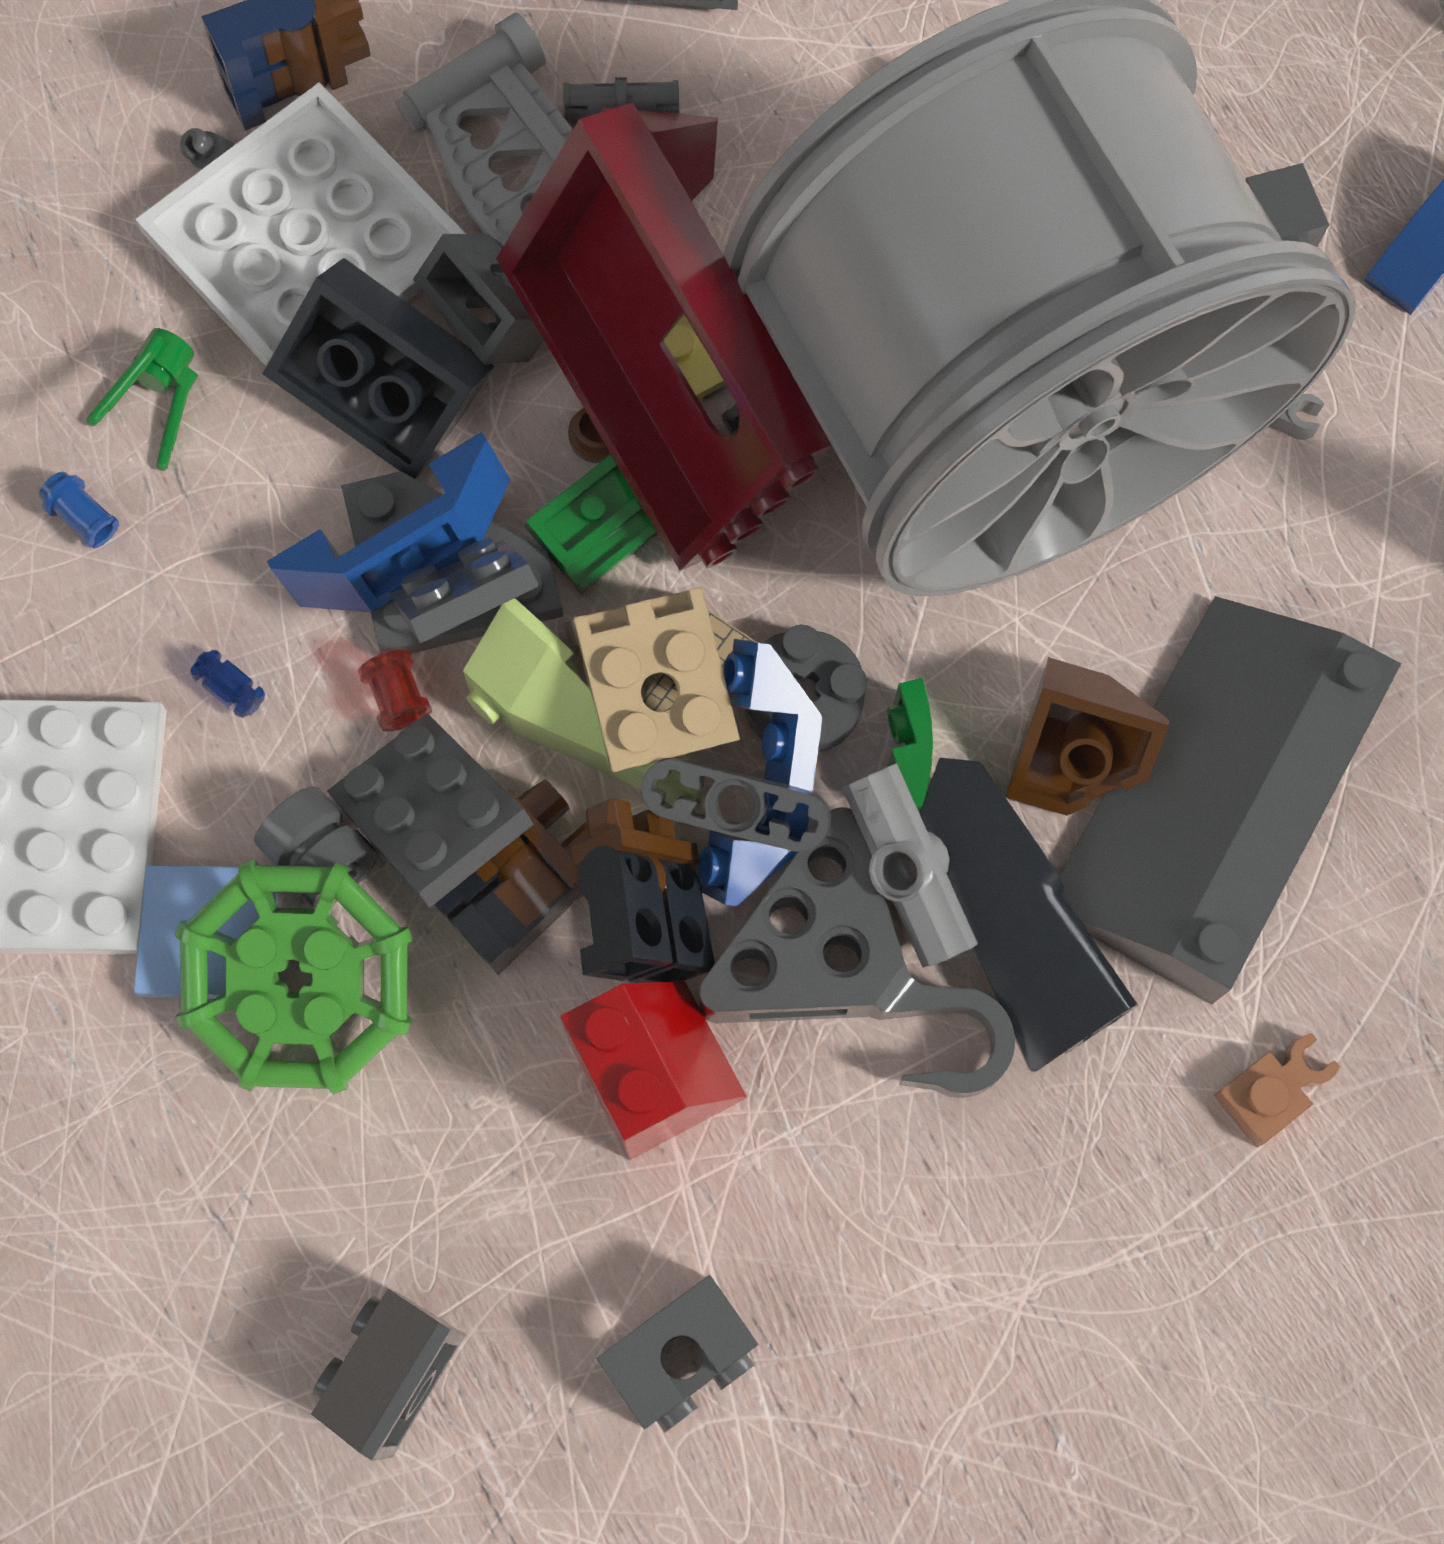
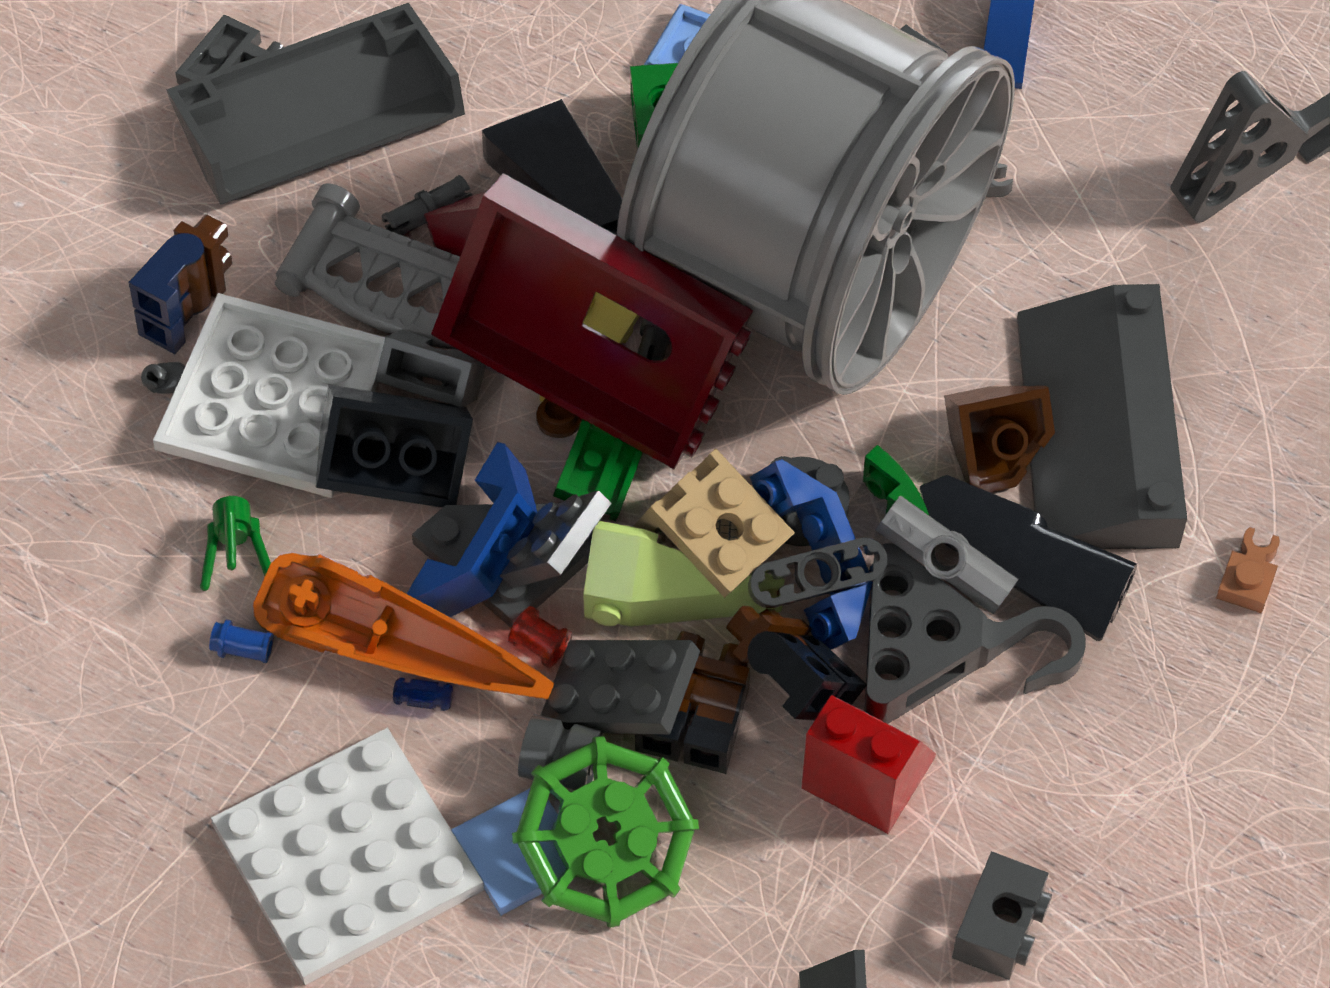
camera: 30 degrees left, 15 degrees down
(216, 576) = (370, 621): none -> orange piece
(780, 94) = (556, 160): none -> black slope

